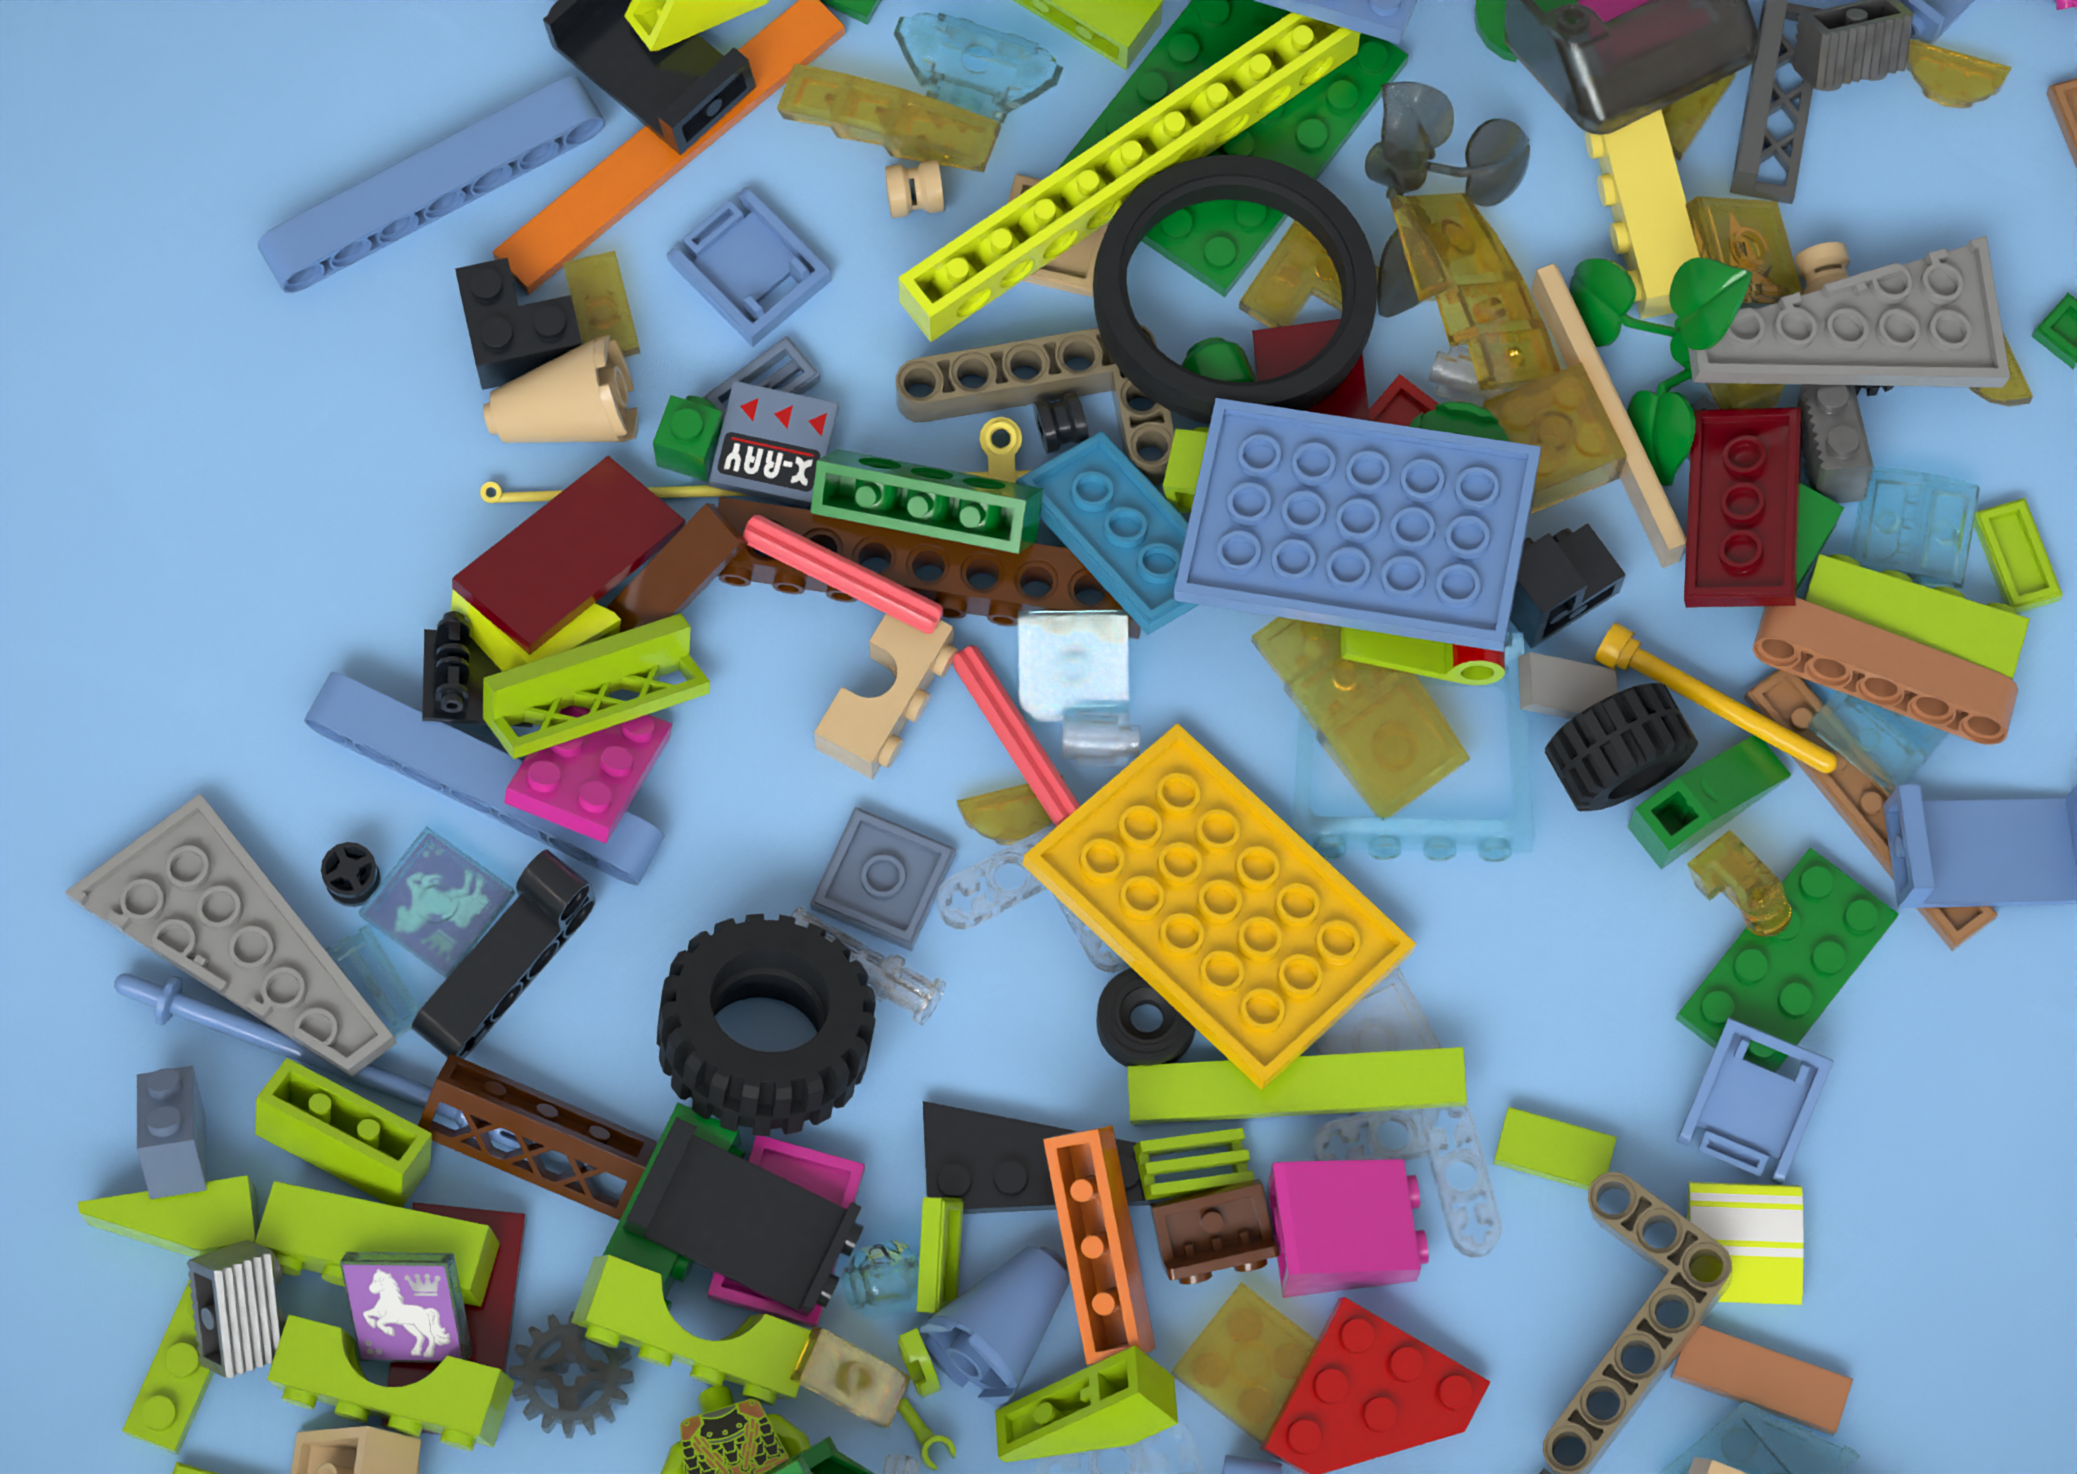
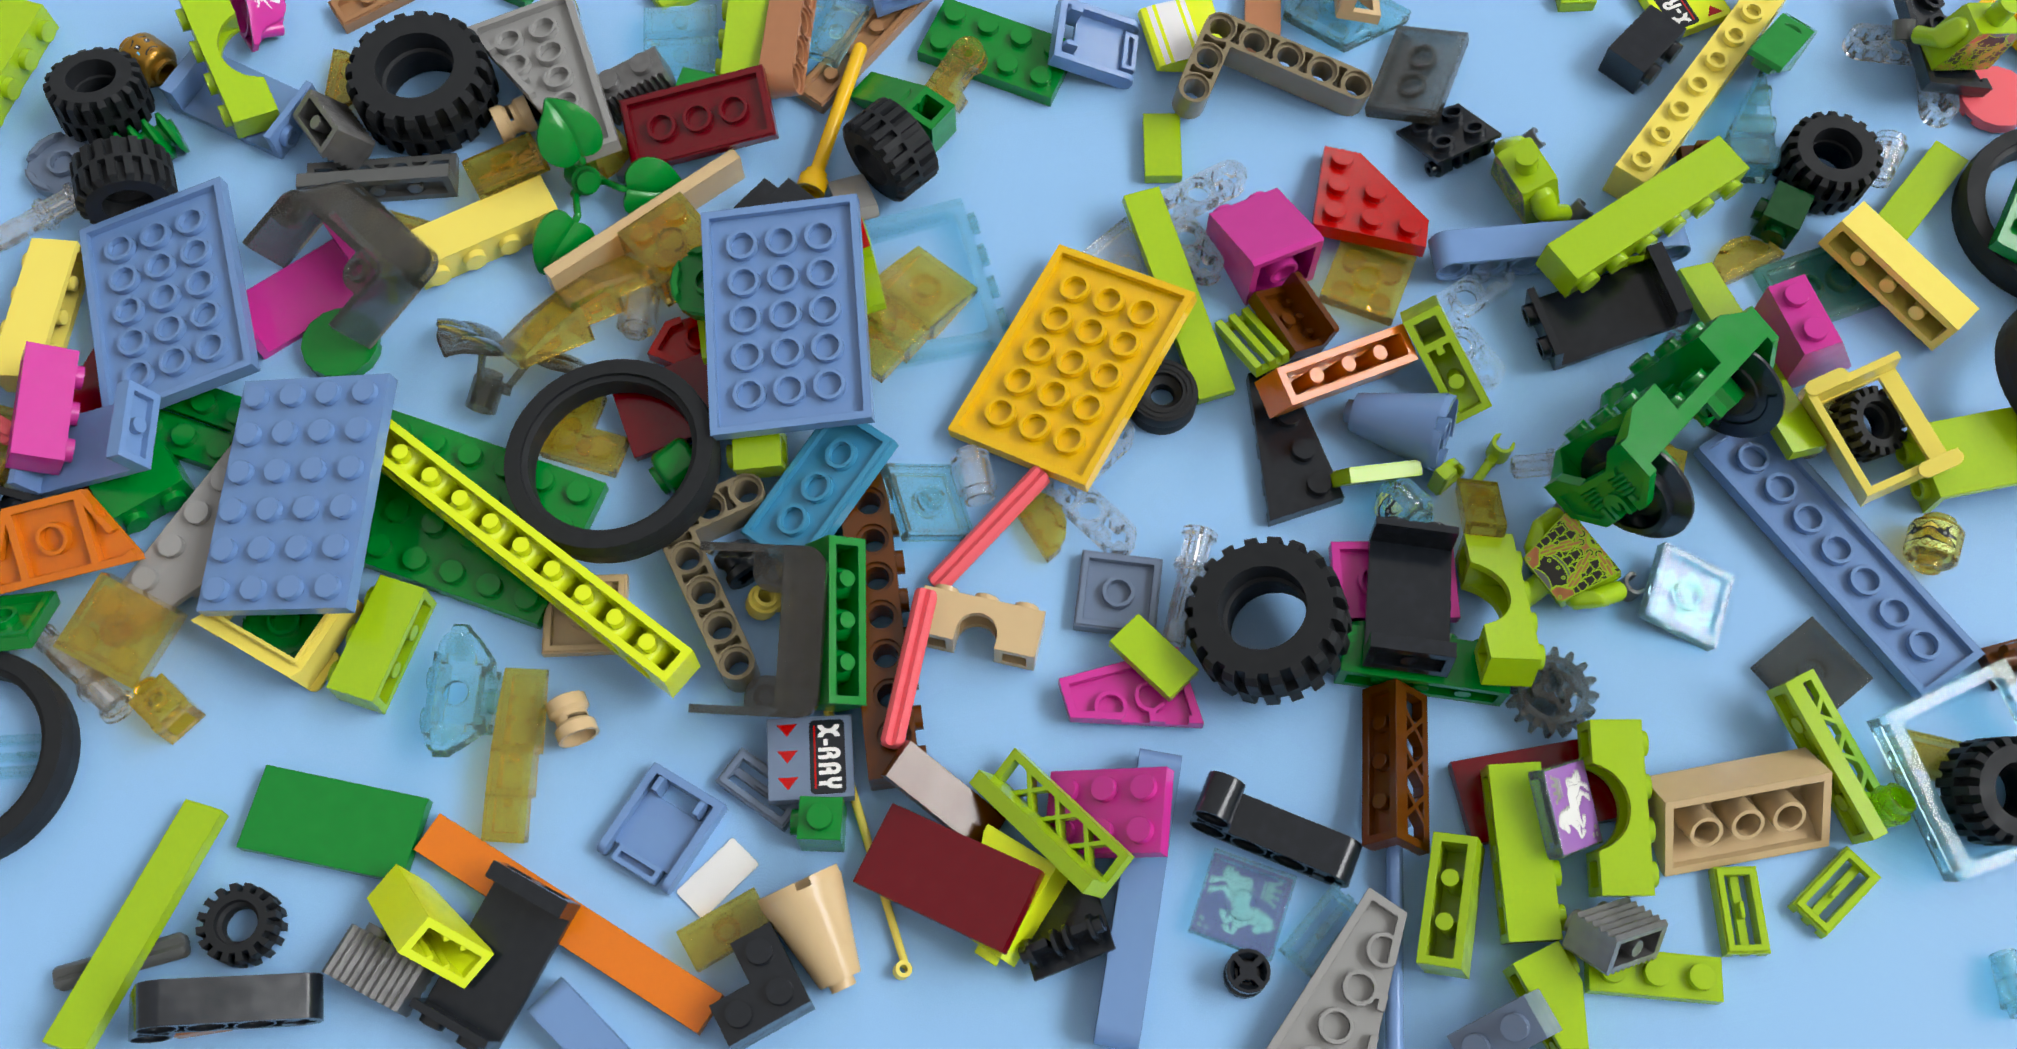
camera: 105 degrees left, 5 degrees down
(671, 317) = (717, 878): none -> white sticker
(741, 850) = (1125, 698): none -> dark pink wing
(772, 878) = (1153, 657): none -> lime tile
(871, 429) = (803, 581): none -> clear smoke windscreen
(1918, 105) = (409, 48): none -> black tyre

